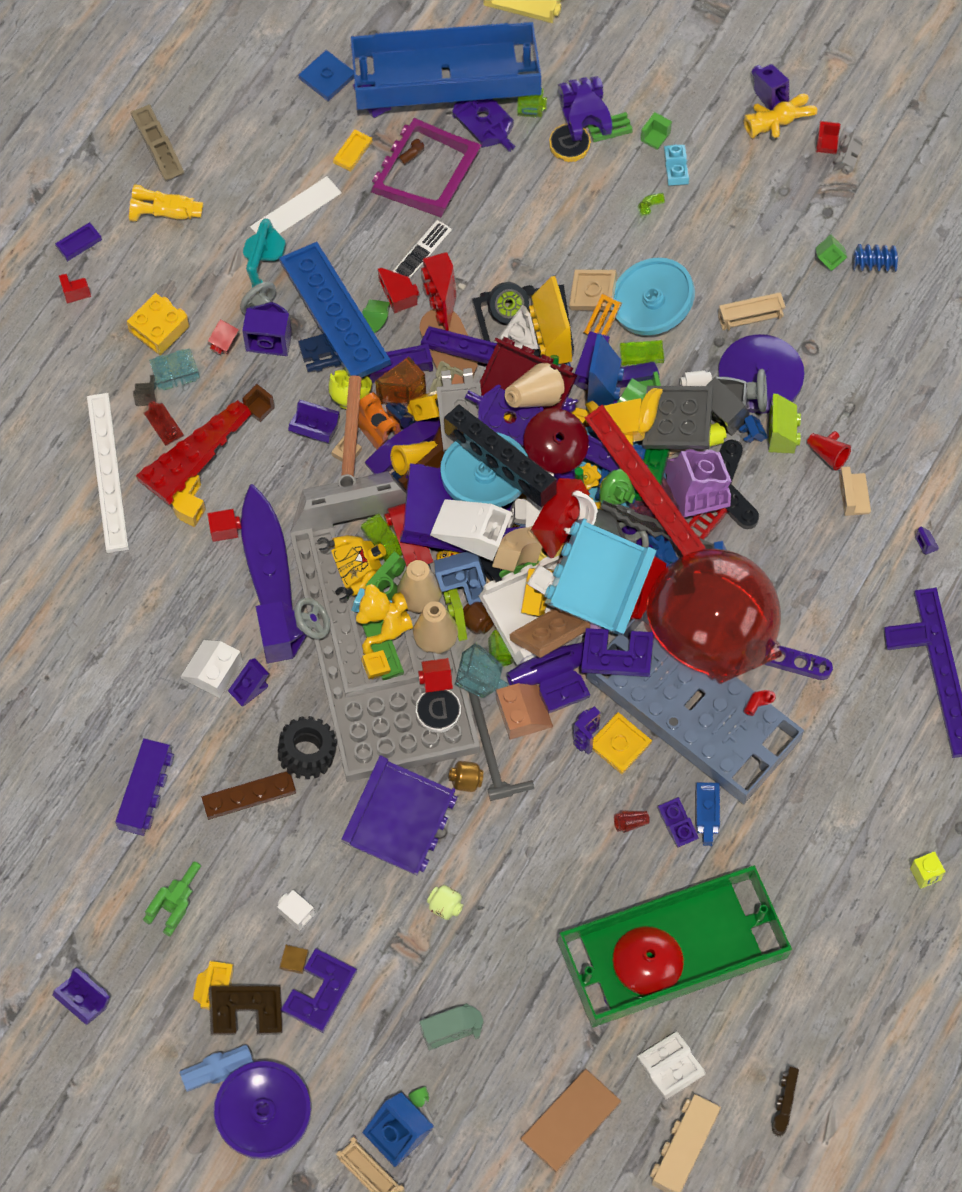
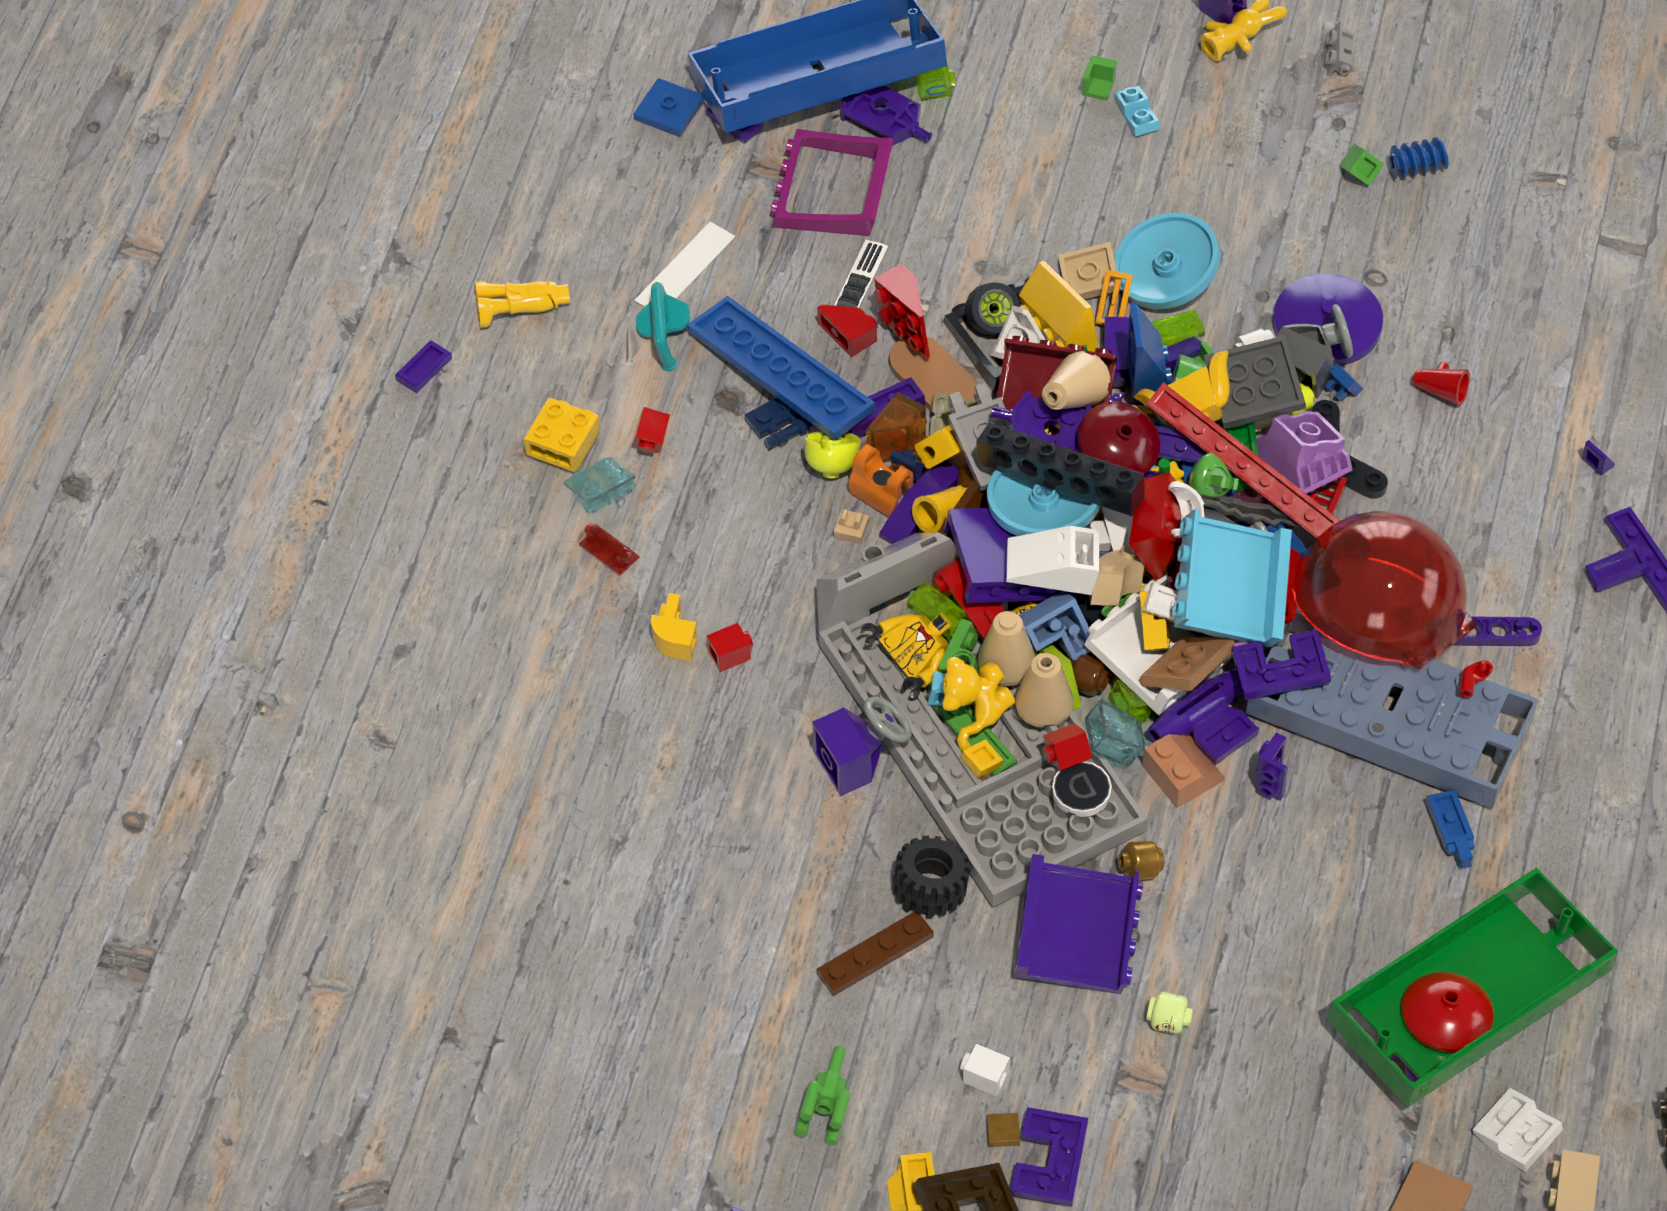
camera: 15 degrees left, 10 degrees down
(75, 289) = (438, 423): red panel -> none
(107, 473) = (558, 624): white tile -> none
(144, 786) = (740, 975): dark purple brick -> none
(145, 392) = (574, 519): clear smoke panel -> none
(157, 142) = (483, 230): dark tan slope -> none
(190, 455) = (658, 578): red wing -> none
(213, 667) = (775, 813): white slope -> none
(249, 682) = (830, 819): dark purple slope -> none
(259, 402) = (722, 496): reddish brown panel -> none
(265, 549) = (789, 661): dark purple piece -> none
(266, 324) = (702, 401): dark purple piece -> none
(314, 421) = (800, 500): dark purple bracket -> none
(351, 425) = (853, 489): nougat axle -> none
(352, 150) = (732, 184): yellow tile -> none
(376, 313) = (833, 358): bright green tile -> none
(414, 151) = (810, 166): reddish brown arm -> none
(451, 1026) = (1229, 1155): sand green piece -> none
(458, 344) = (953, 369): dark purple tile -> none
(498, 789) = (1185, 867): dark grey bar -> none
(565, 148) = (997, 115): black tile -> none
(583, 106) = (1001, 66): dark purple piece -> none
(618, 121) = (1037, 85): bright green tile -> none
(620, 743) = (1316, 776): yellow tile -> none
(630, 820) = (1361, 860): clear red cone -> none
(650, 200) = (1120, 157): clear neon green arm -> none
(677, 822) = (1421, 852): dark purple slope -> none
(751, 311) = (1290, 251): tan container -> none
(783, 425) = (1378, 369): lime slope -> none
(828, 137) = (1308, 38): red panel -> none
(854, 492) = (1490, 425): tan panel -> none

